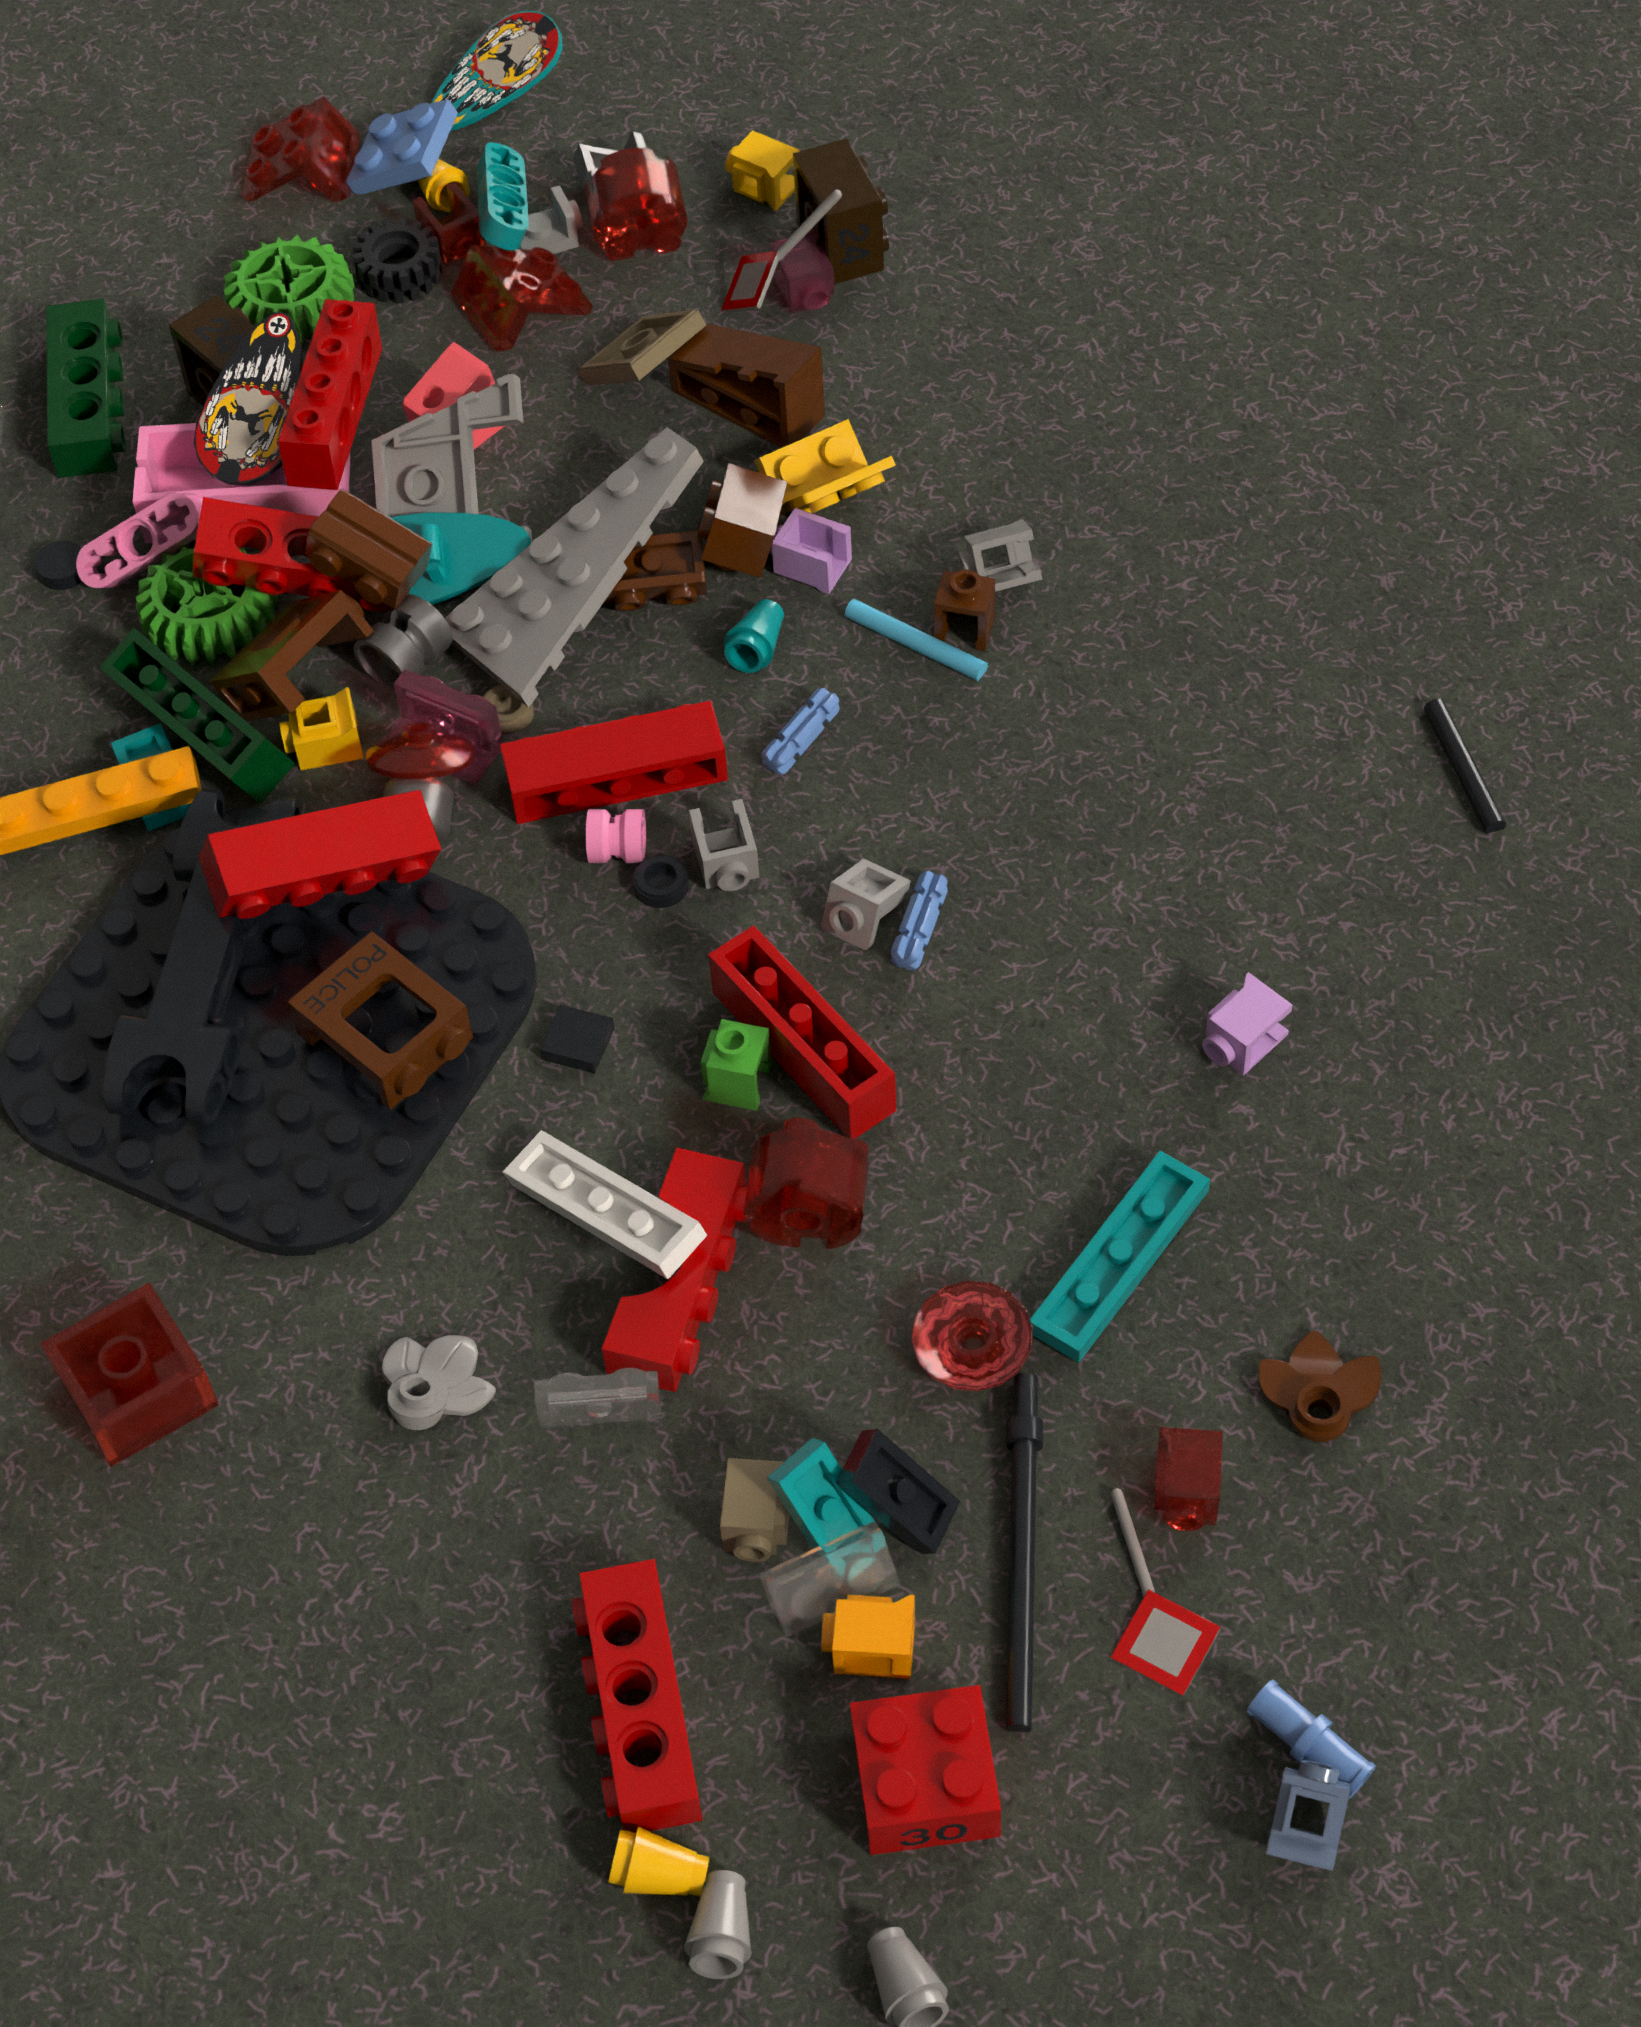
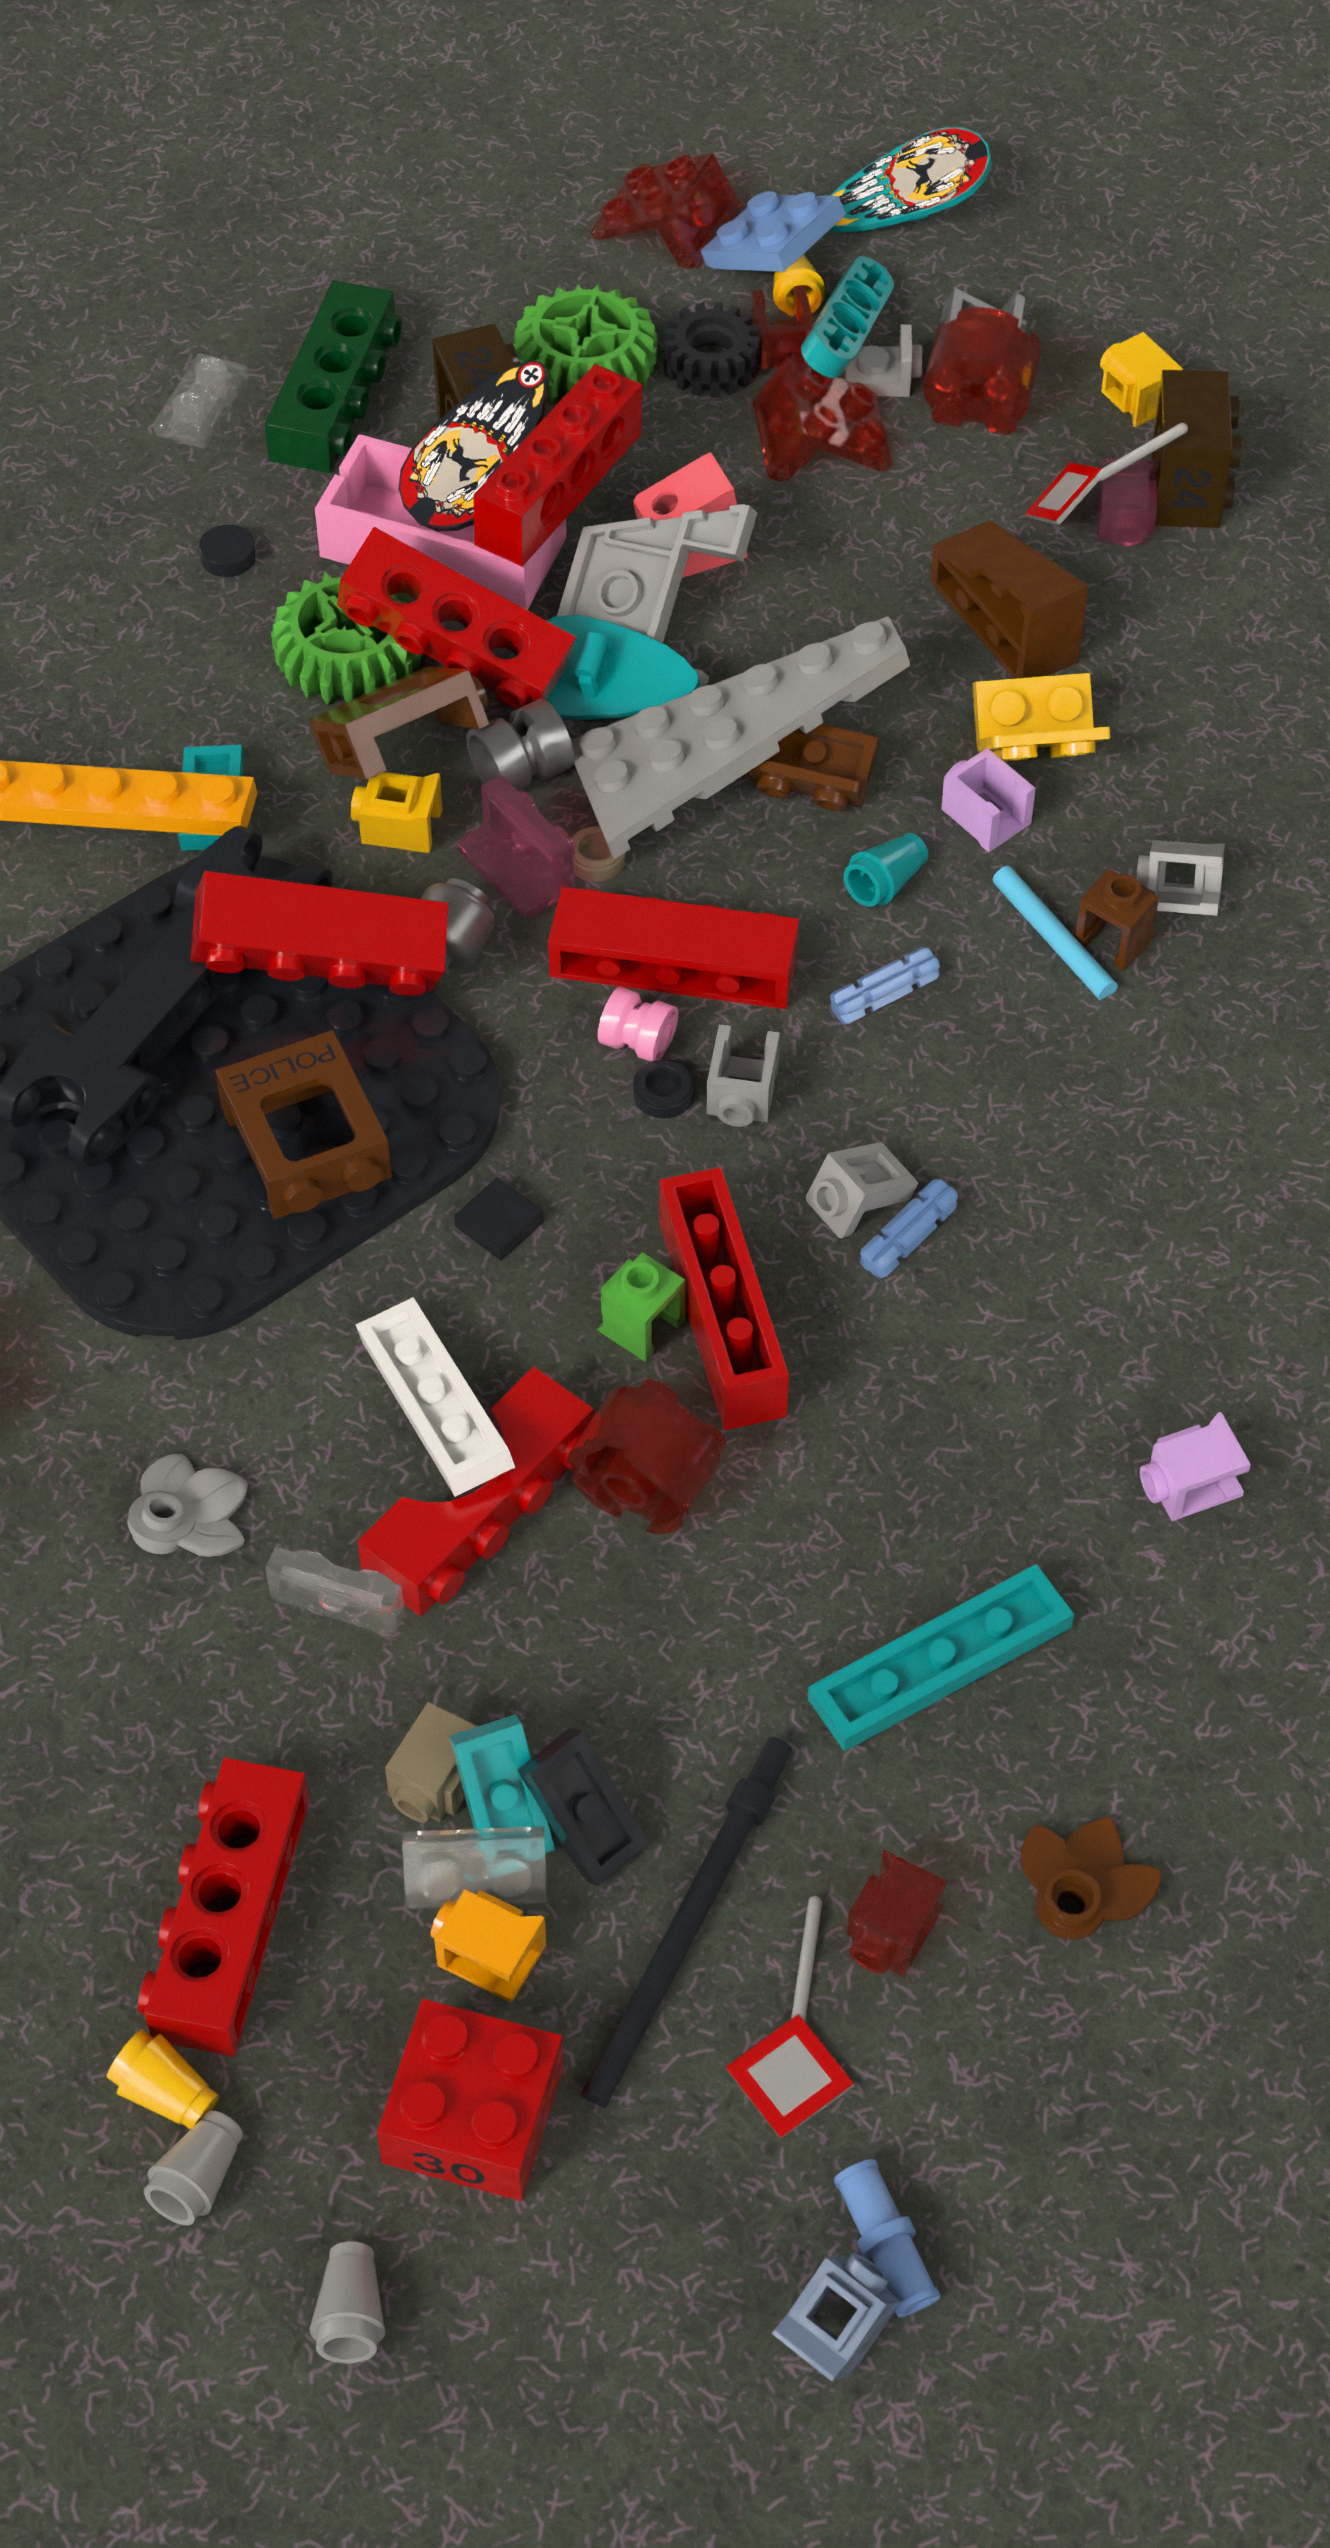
camera: 20 degrees right, 0 degrees up
(121, 541) = (289, 544): bright pink beam -> none
(197, 715) = (279, 750): dark green brick -> none
(367, 550) = (515, 638): reddish brown brick -> none
(420, 753) = (477, 867): clear red dish -> none
(641, 348) = (914, 524): dark tan plate -> none
(741, 520) = (925, 740): reddish brown brick -> none
(969, 1312) = (740, 1652): clear red dish -> none

